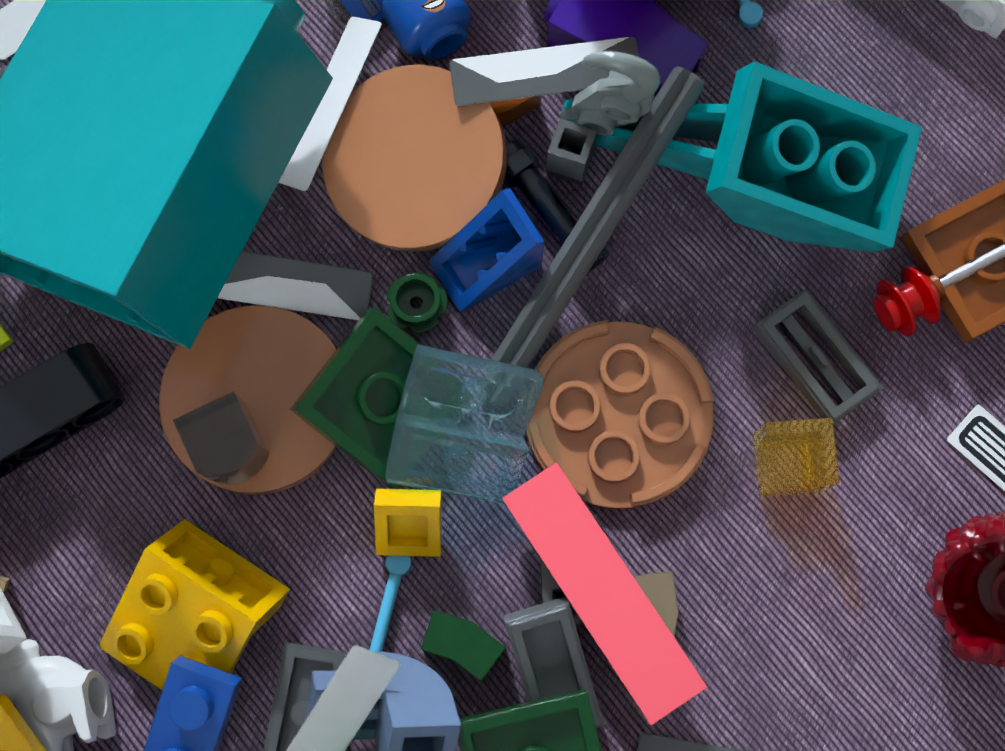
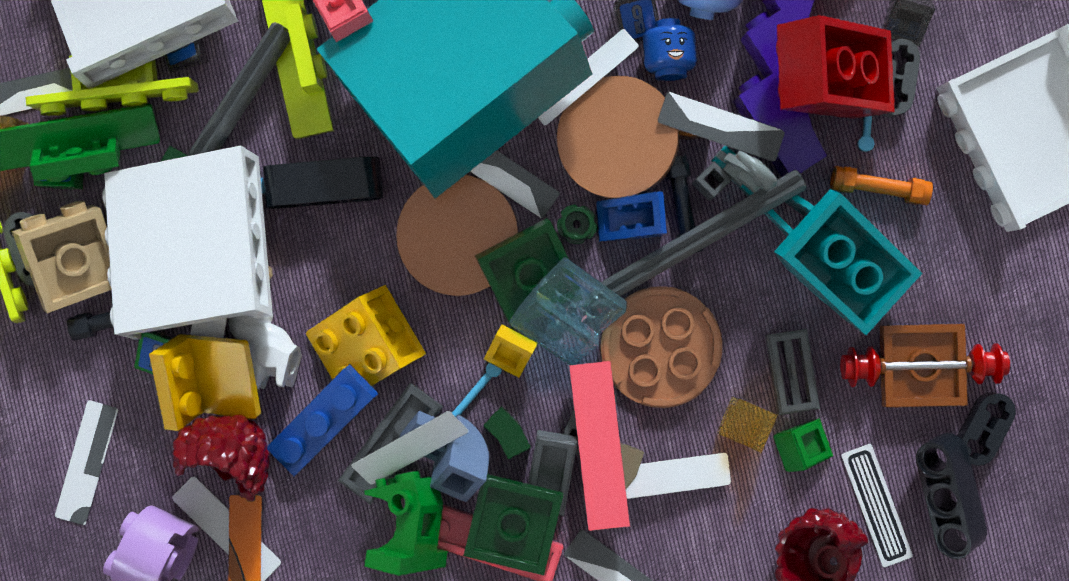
camera: 25 degrees right, 10 degrees up
(223, 440) = (429, 256): clear smoke piece -> none
(740, 580) = (680, 475): none -> white sticker
(847, 41) = (914, 191): none -> orange bar
(888, 453) = (803, 446): none -> green slope

